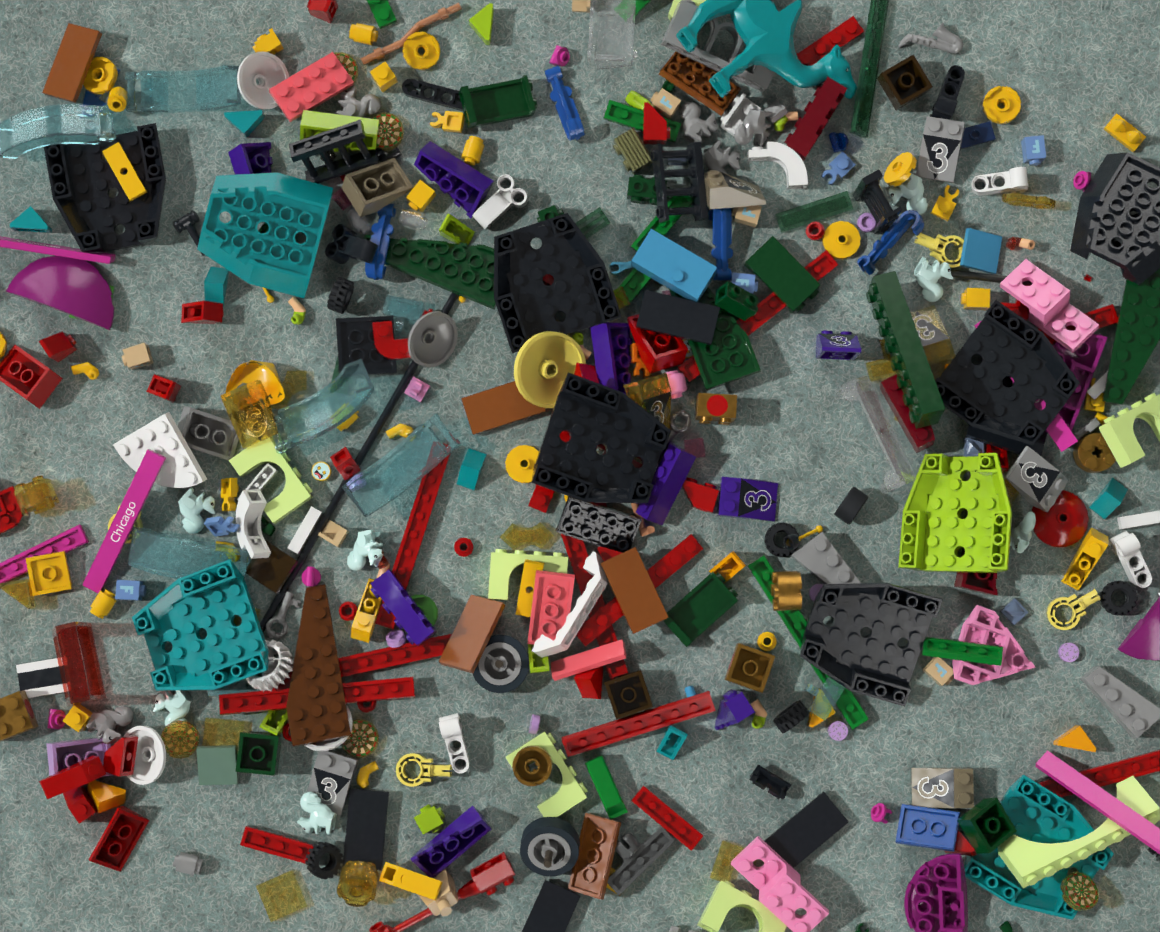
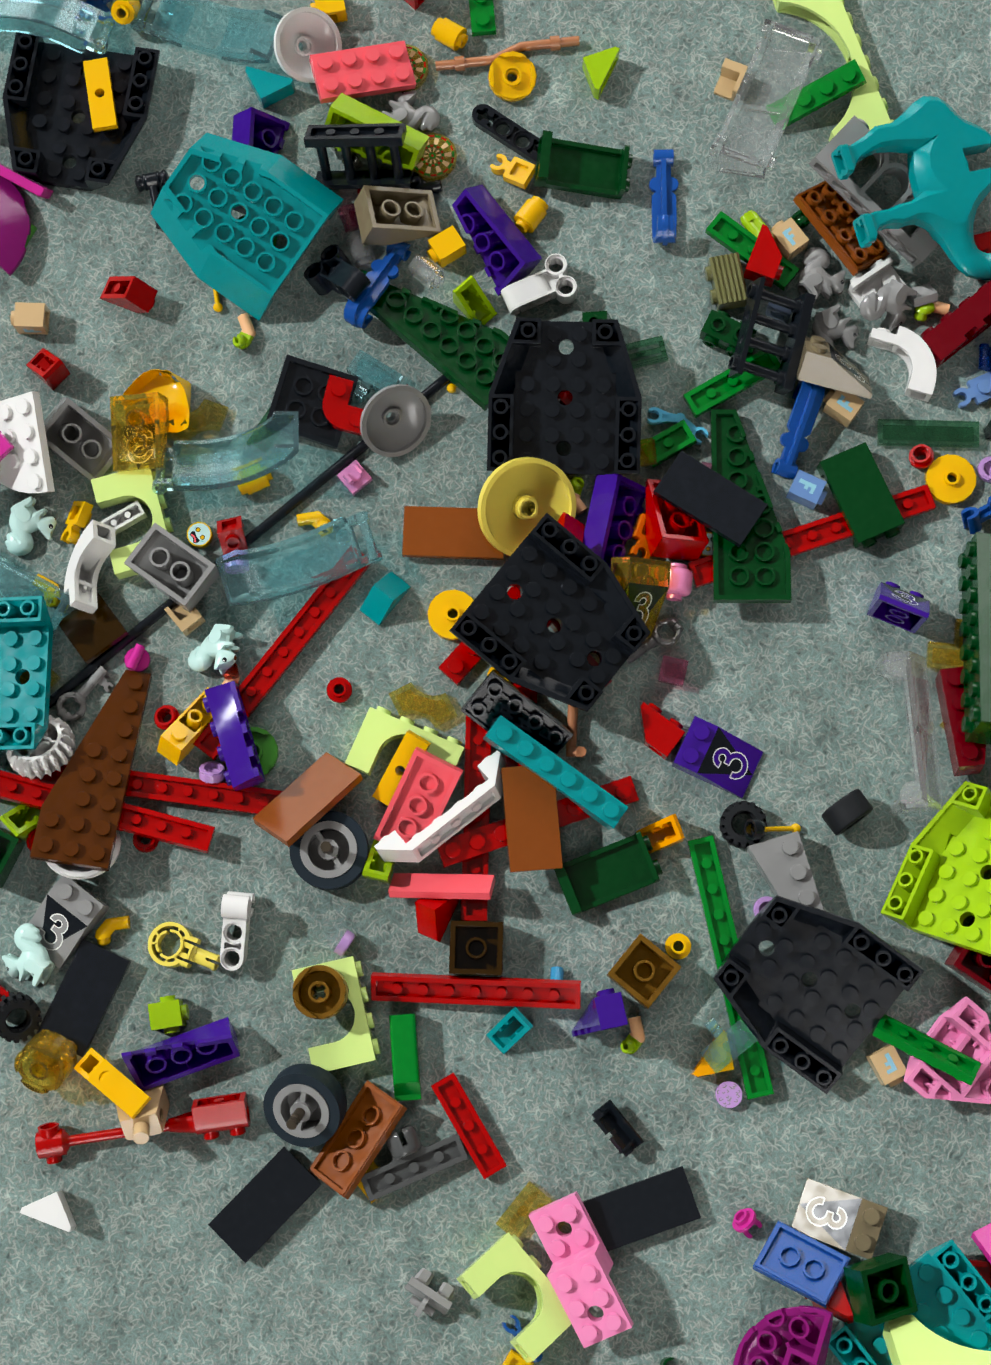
camera: 25 degrees right, 5 degrees down
(216, 284) = (159, 266): teal slope -> none
(220, 526) = (49, 556): medium blue plate -> none
(269, 529) = (108, 582): dark green hand -> none
(305, 530) = (144, 606): white piece -> none
(313, 503) = (172, 567): none -> light grey slope
(340, 295) = (303, 329): black tyre -> none
(363, 739) = (122, 883): clear yellow tile -> none
(383, 76) = (454, 91): yellow brick -> none
(560, 56) = (679, 140): dark pink plate -> none
(639, 552) = (555, 771): none -> teal arch
(667, 484) = (620, 701): dark purple wedge -> none
(673, 266) = (727, 435): dark azure brick -> none
(716, 408) = (718, 628): pearl gold brick -> none
(736, 300) = (791, 504): dark green brick -> none
(786, 590) = (725, 888): pearl gold brick -> none
(791, 716) = (674, 1053): black tyre -> none

